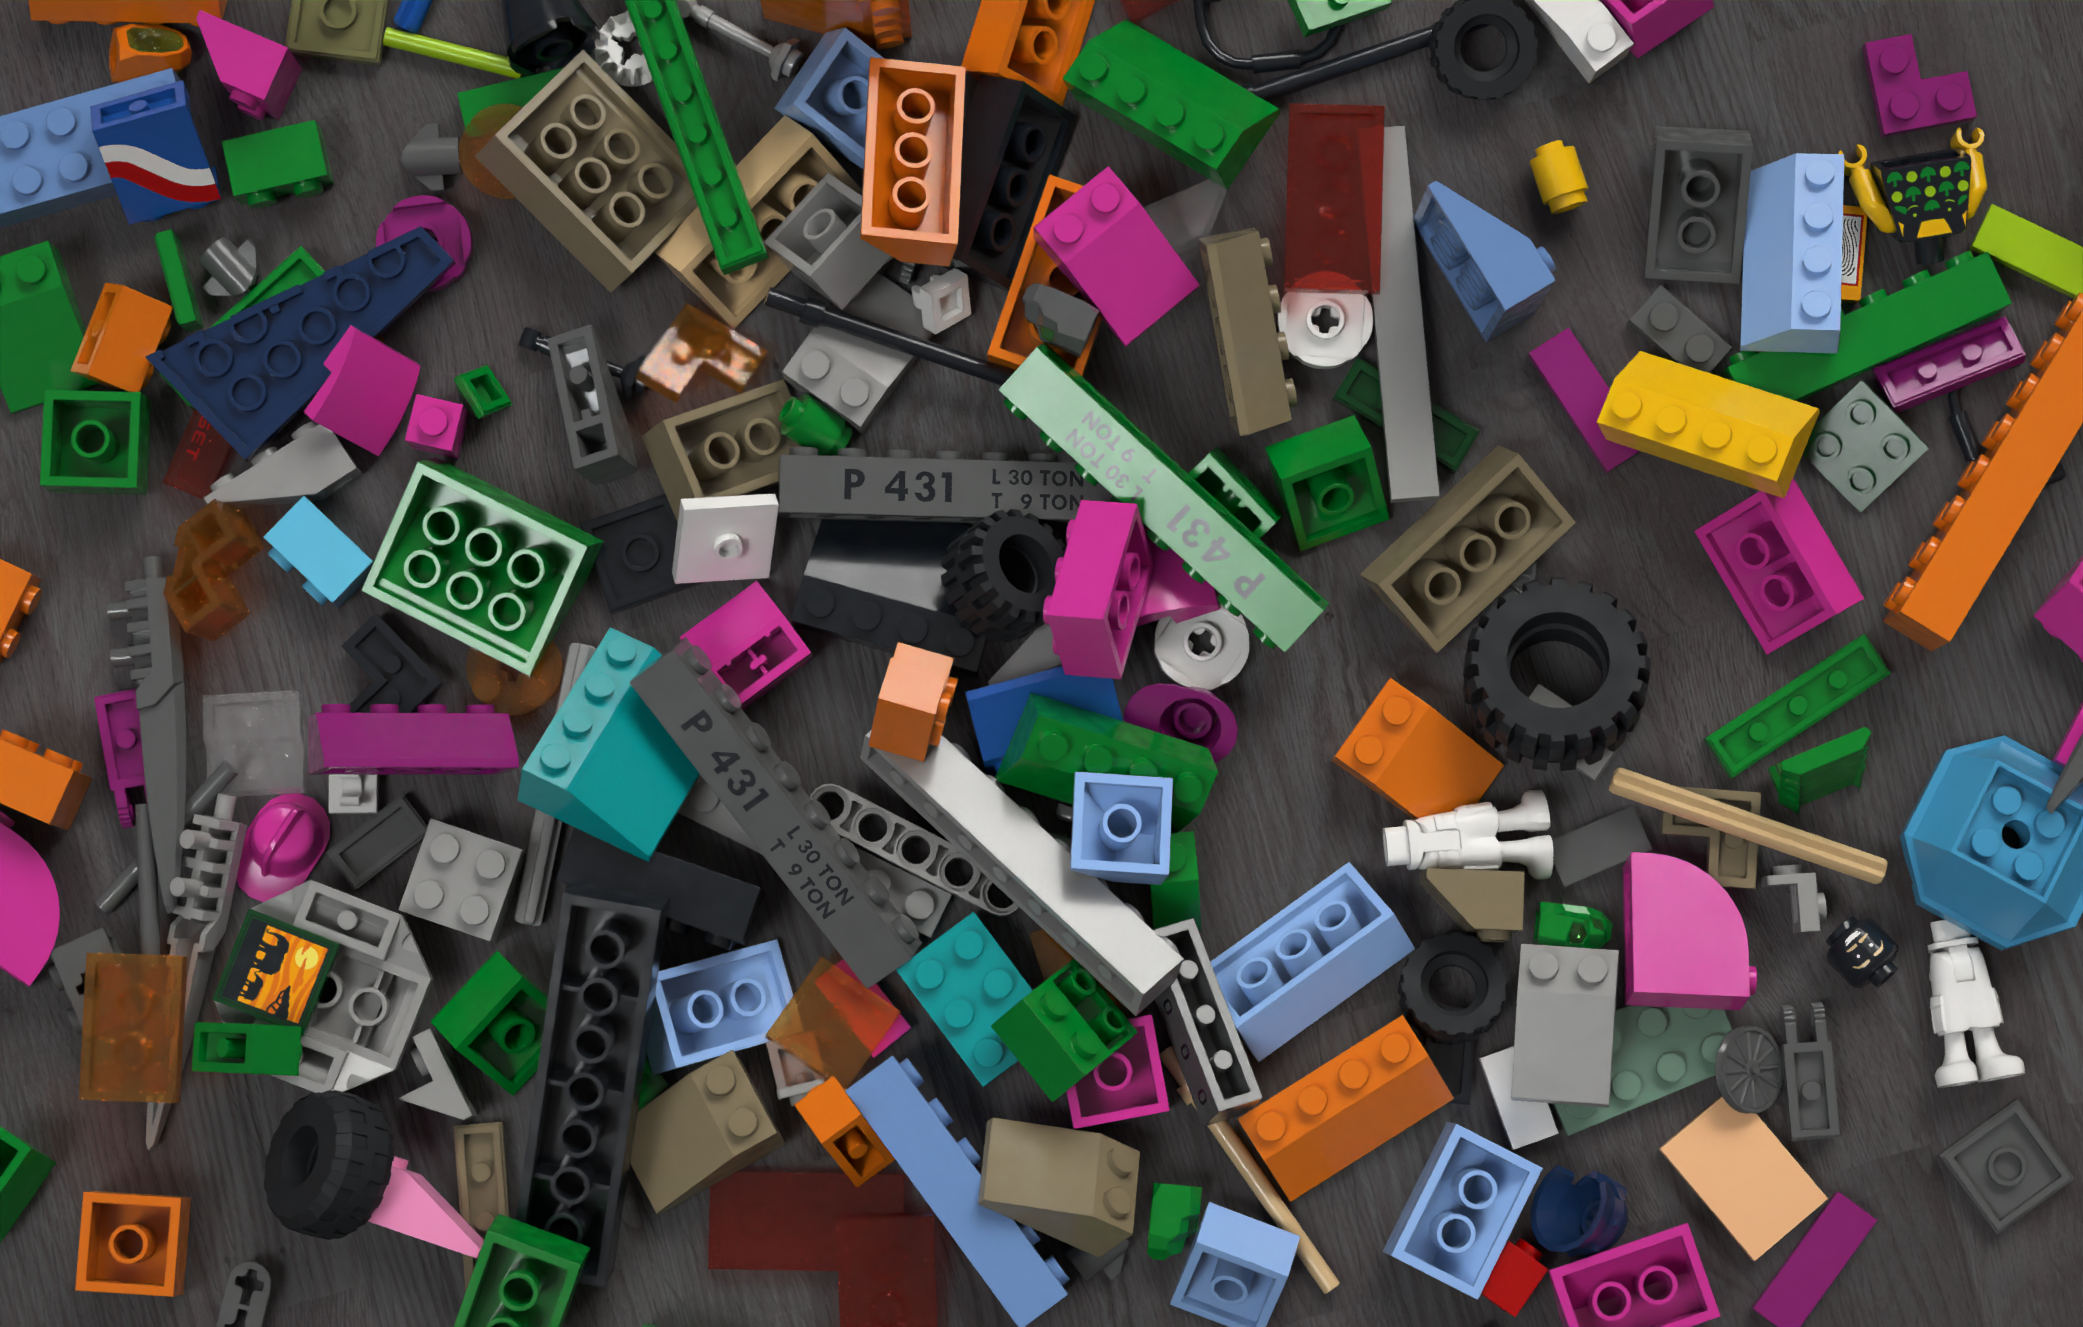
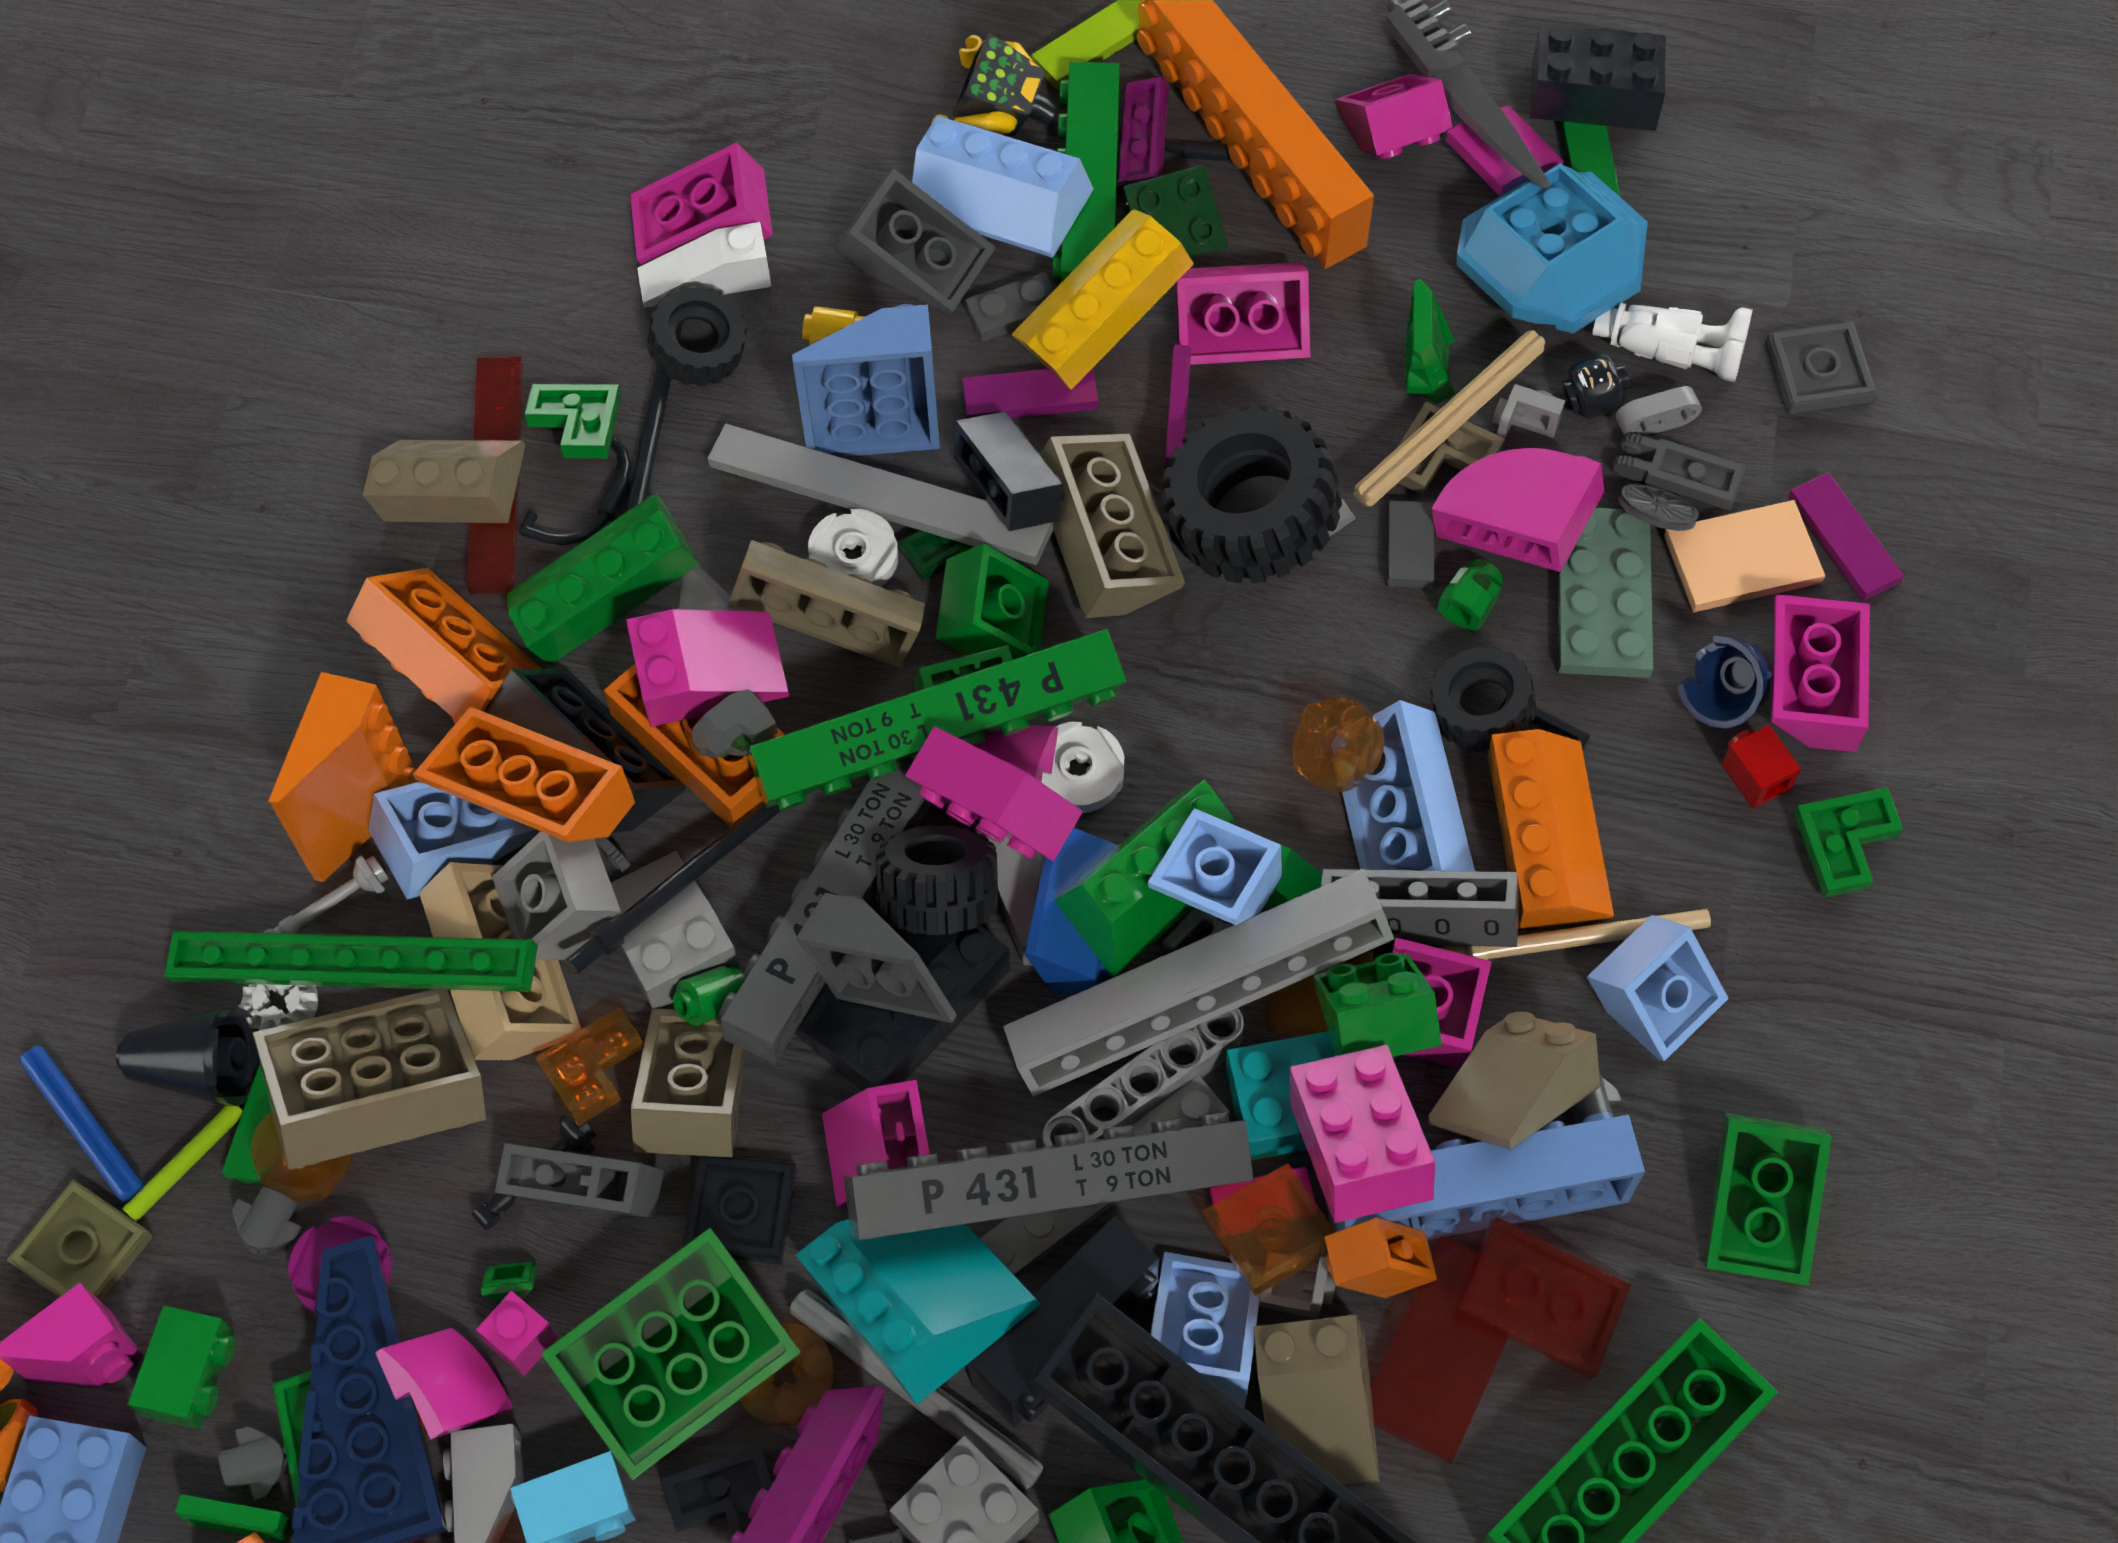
camera: 60 degrees left, 20 degrees down
(154, 153) = (99, 1469): panel -> none
(725, 538) = (769, 1112): white plate -> none
(896, 550) = (869, 960): none -> dark grey slope
(913, 702) = (1010, 1006): orange brick -> none
(929, 1067) = (1361, 1133): none -> dark pink brick
(943, 300) = (659, 838): white tile -> none
(1172, 1218) = (1588, 1012): green rock -> none
(1185, 714) = (1138, 796): magenta piece -> none
(1318, 856) = (1313, 741): none -> clear orange plate
(1334, 199) = (755, 494): clear red tile -> none
(1415, 756) = (1264, 646): orange slope -> none
(1462, 1209) = (1684, 772): light blue slope -> none
(1468, 838) = (1361, 628): white piece -> none
(1472, 428) = (1008, 471): none -> black brick
(1479, 900) = (1417, 639): dark tan slope -> none
(1521, 1120) = (1599, 695): white tile -> none
(1565, 1025) = (1557, 620): light grey slope -> none
(1633, 554) = (1178, 399): none -> magenta tile
(1797, 706) = (1364, 354): green tile -> none
(1864, 1026) = (1659, 412): none -> light grey beam
(1905, 100) = (910, 81): magenta plate -> none

